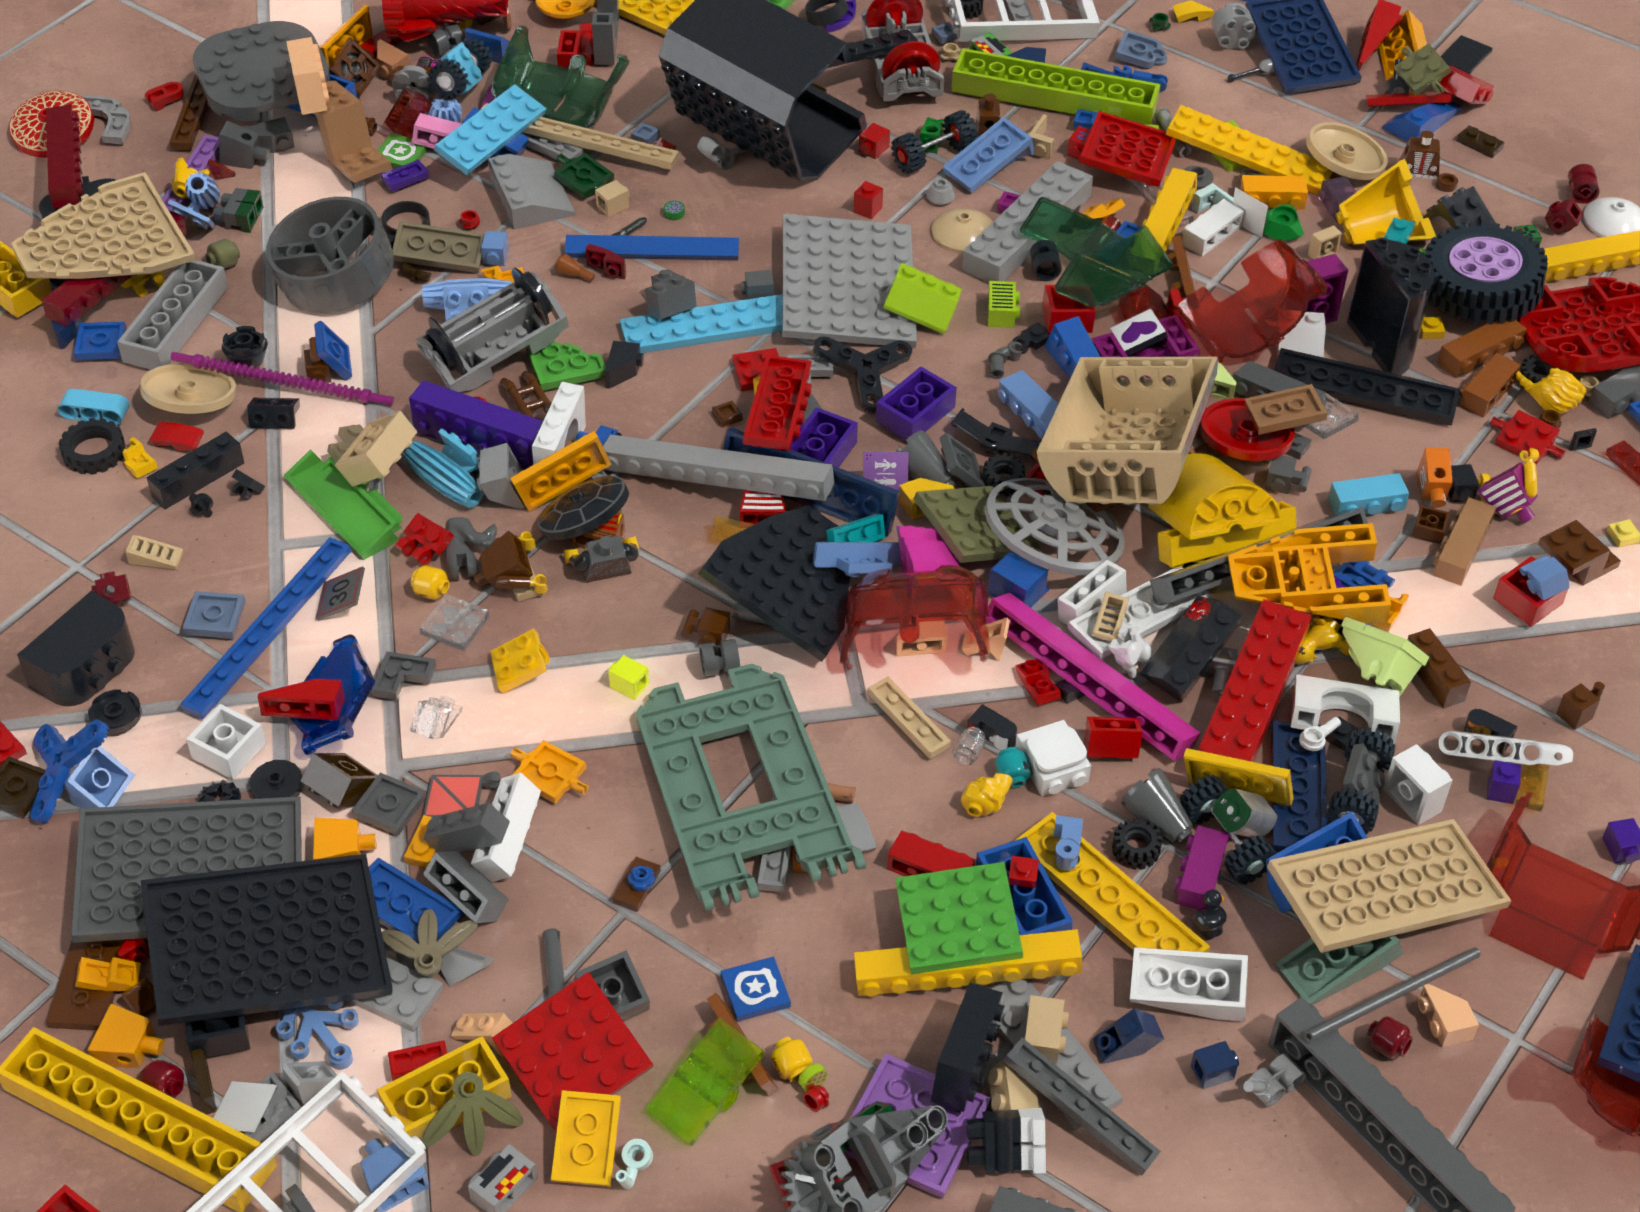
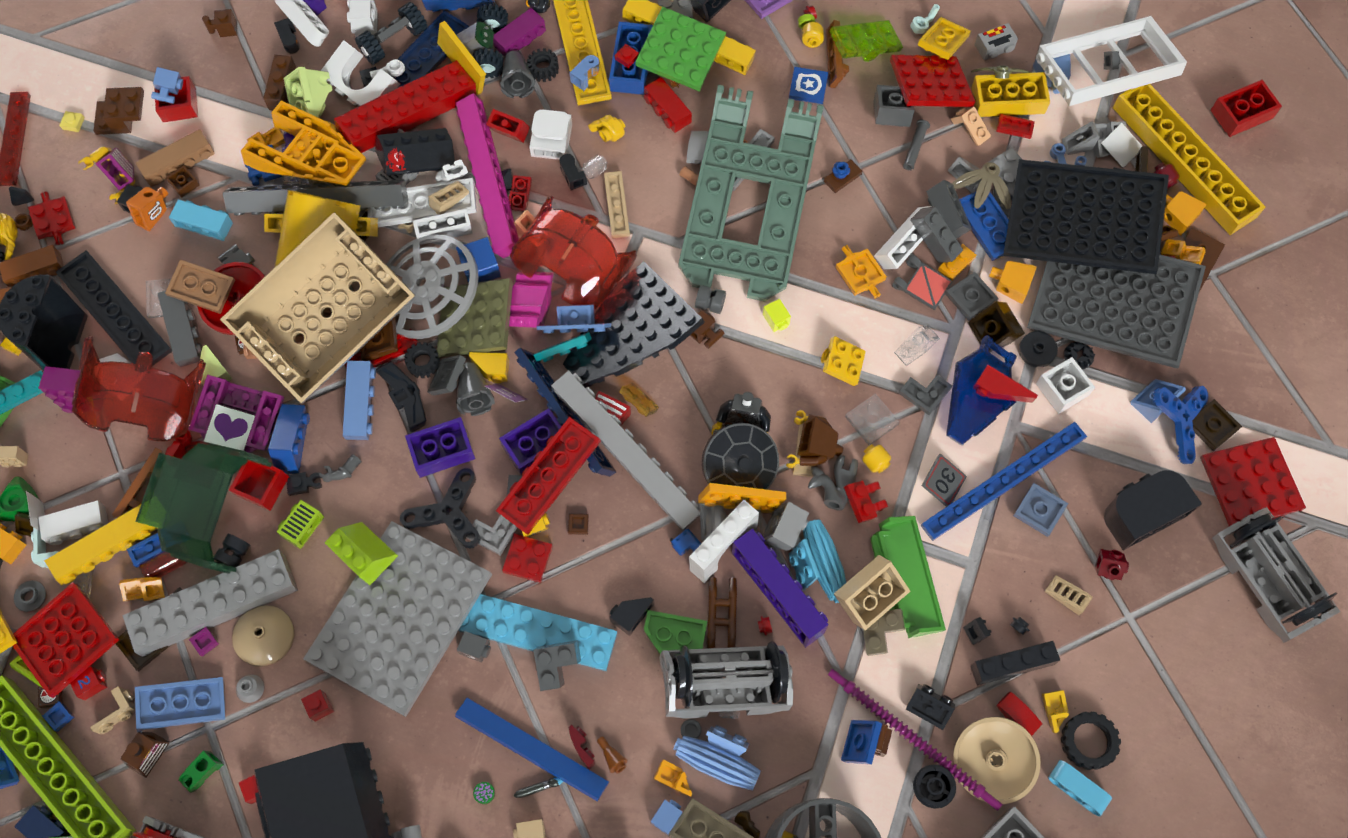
camera: 150 degrees left, 20 degrees up
(116, 709) = (1136, 447): black plate -> none
(909, 151) = (179, 748): black axle -> none
(1015, 764) = (578, 140): teal head -> none

